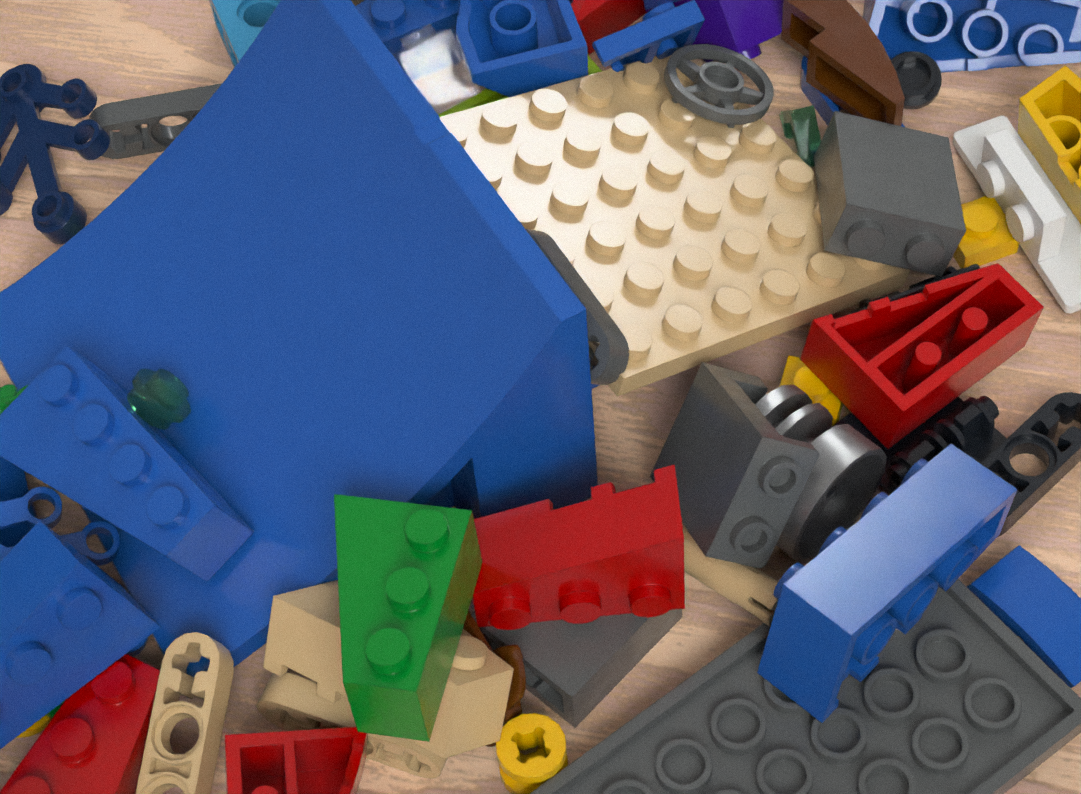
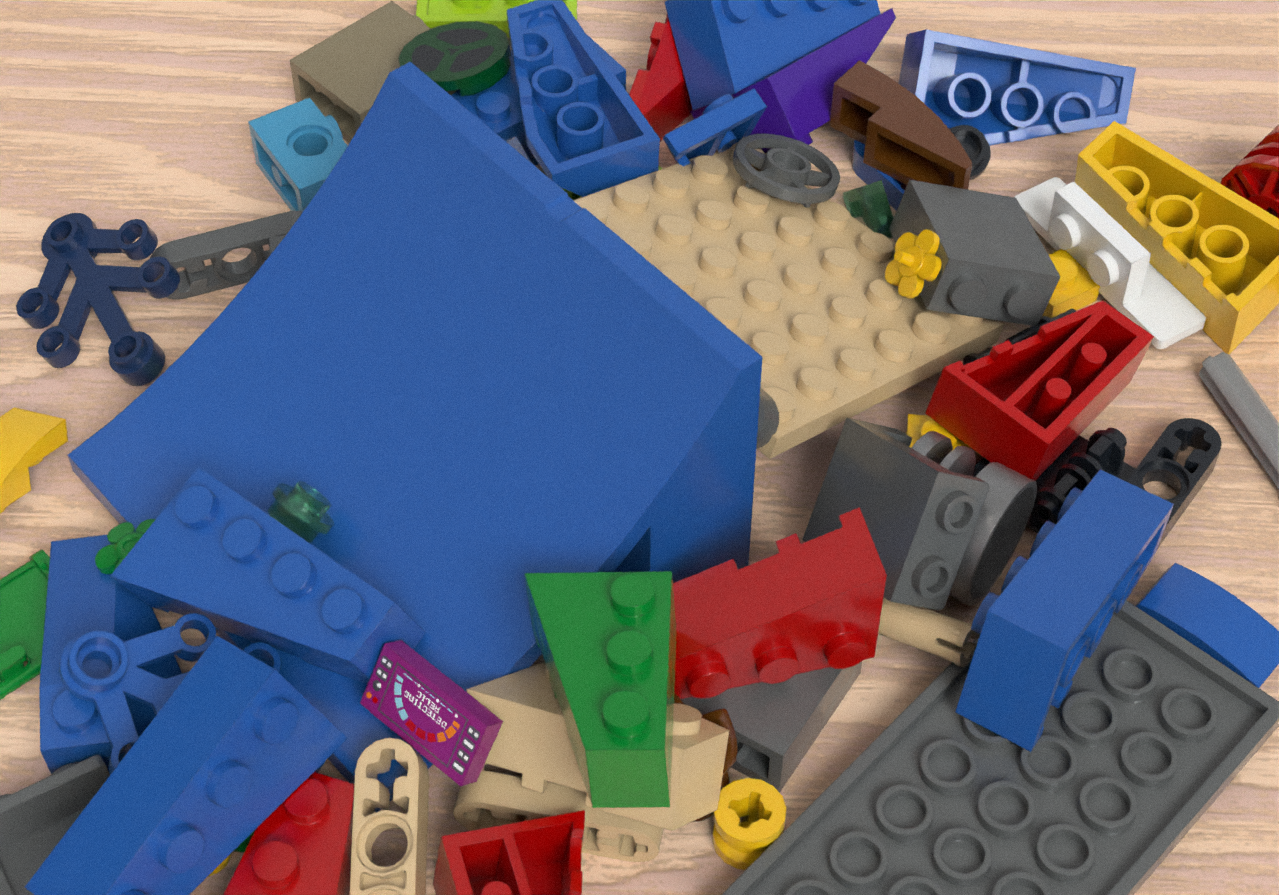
camera: 15 degrees left, 5 degrees down
(239, 613) = (431, 712): none -> magenta tile
(817, 201) = (914, 262): none -> yellow plant

